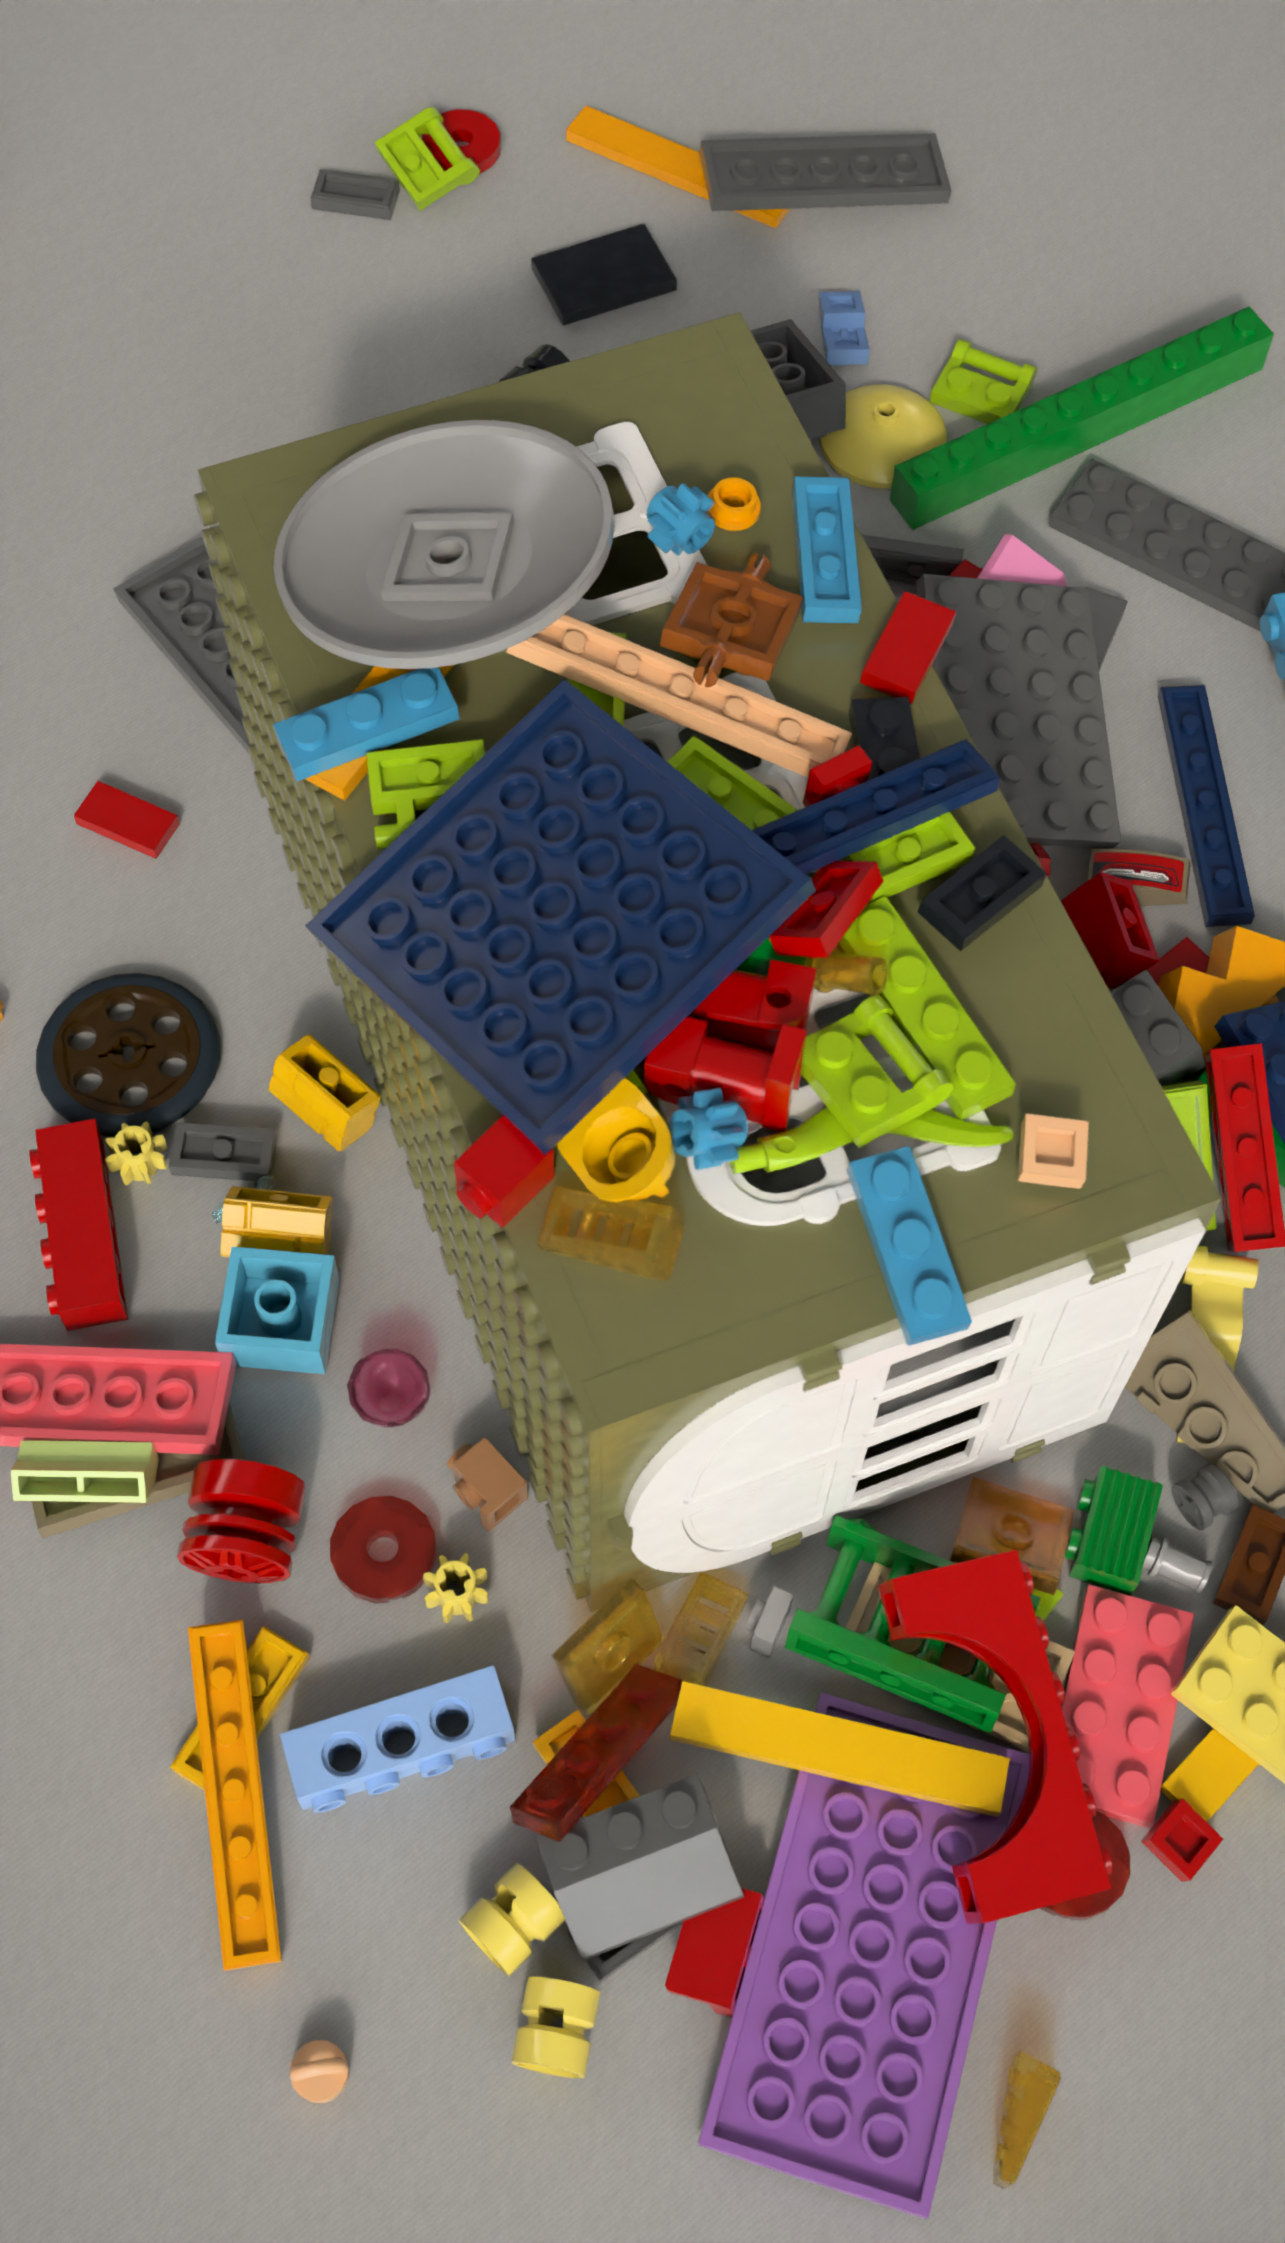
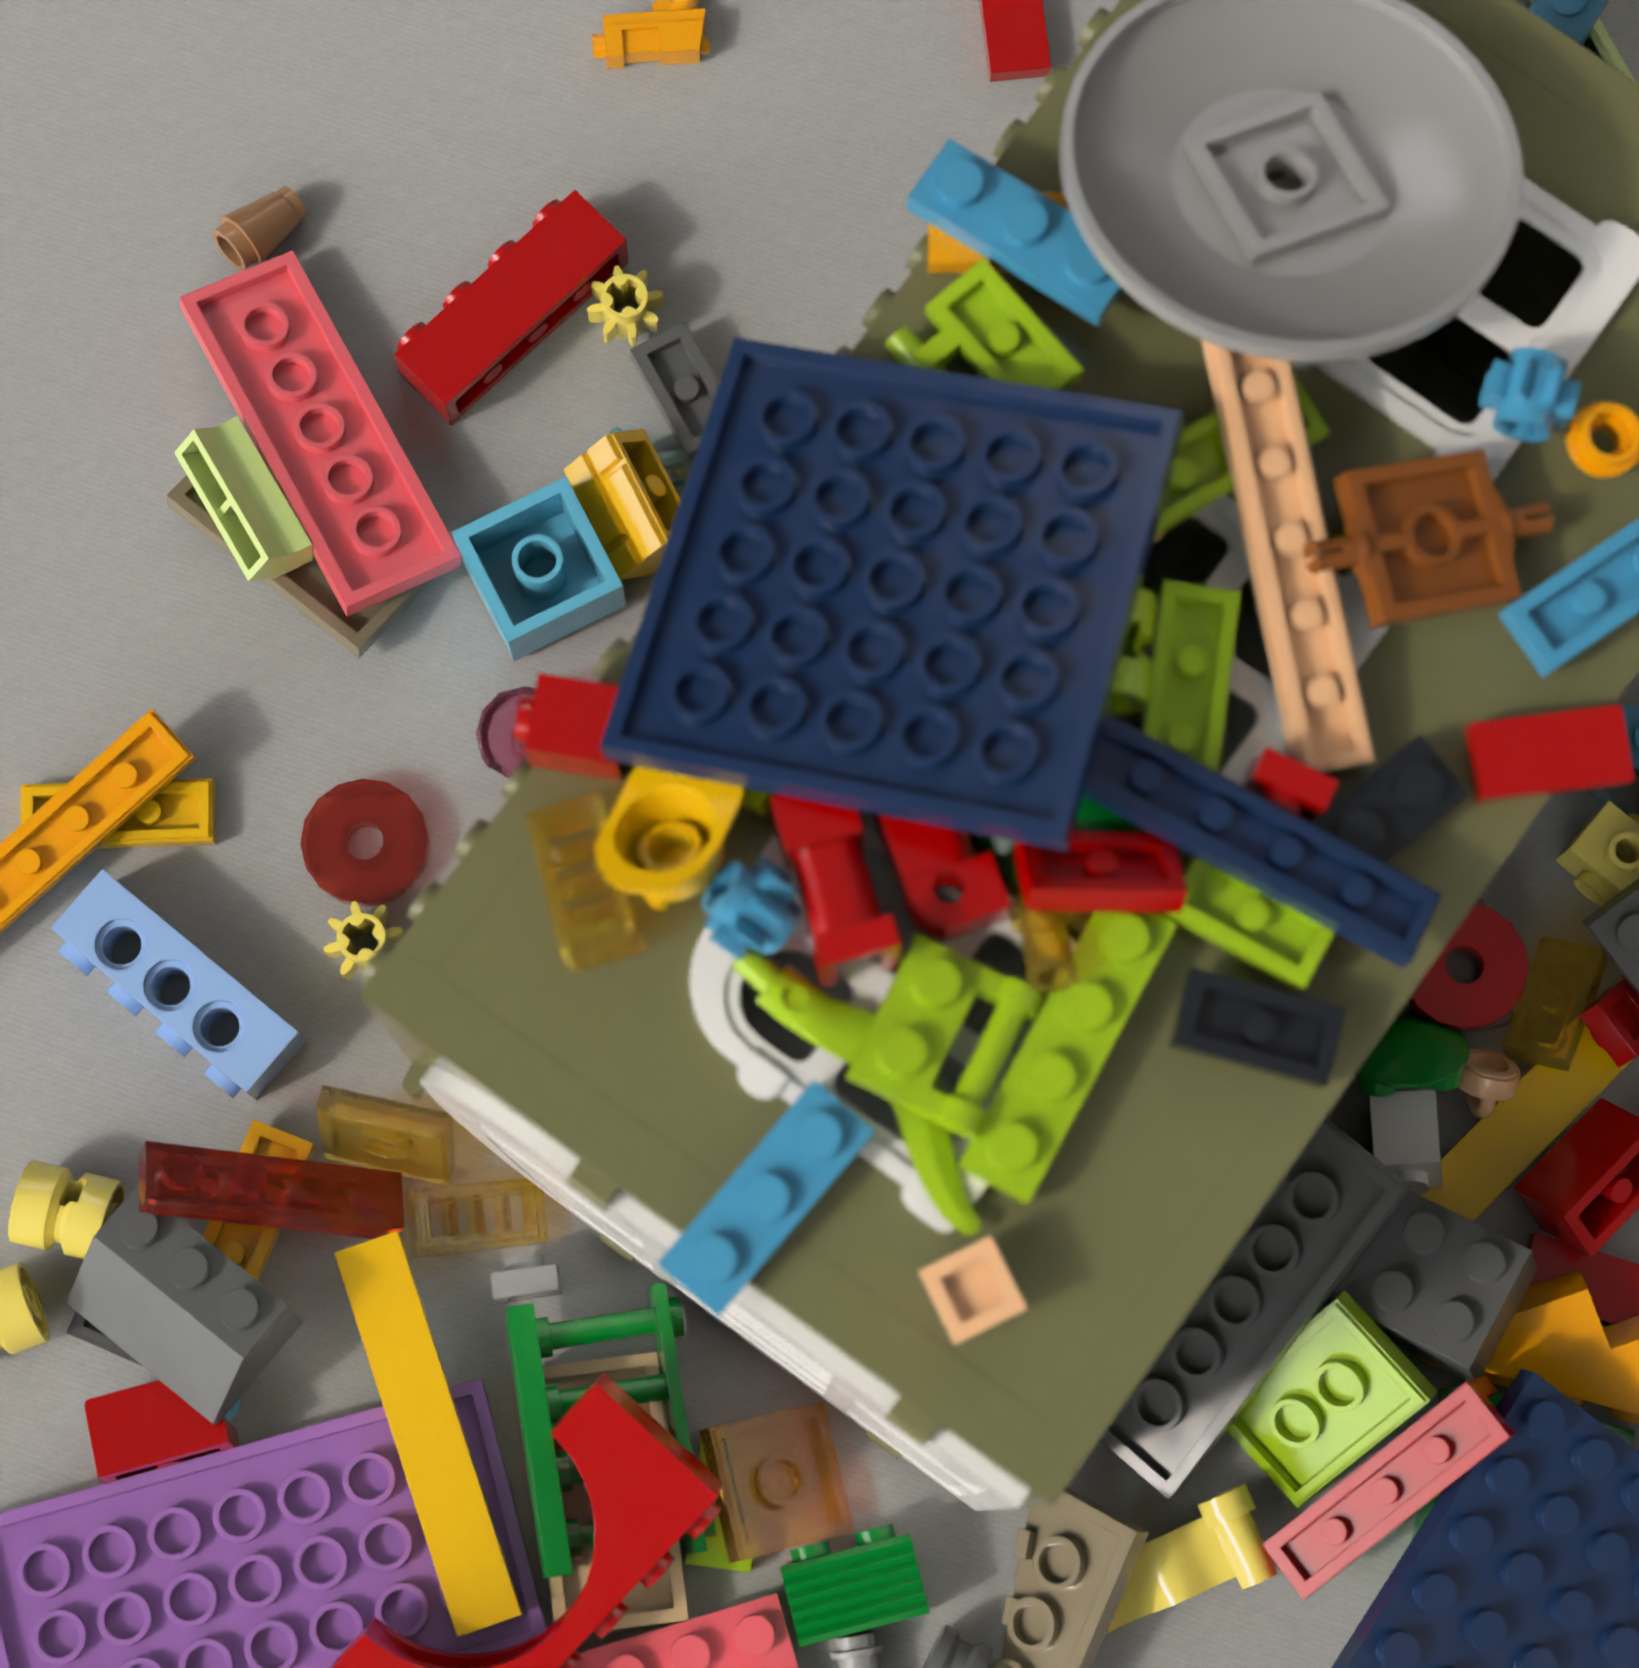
camera: 55 degrees right, 15 degrees up
(88, 1011) = (760, 142): dark brown wedge -> none
(242, 1521) = (288, 688): red wheel -> none

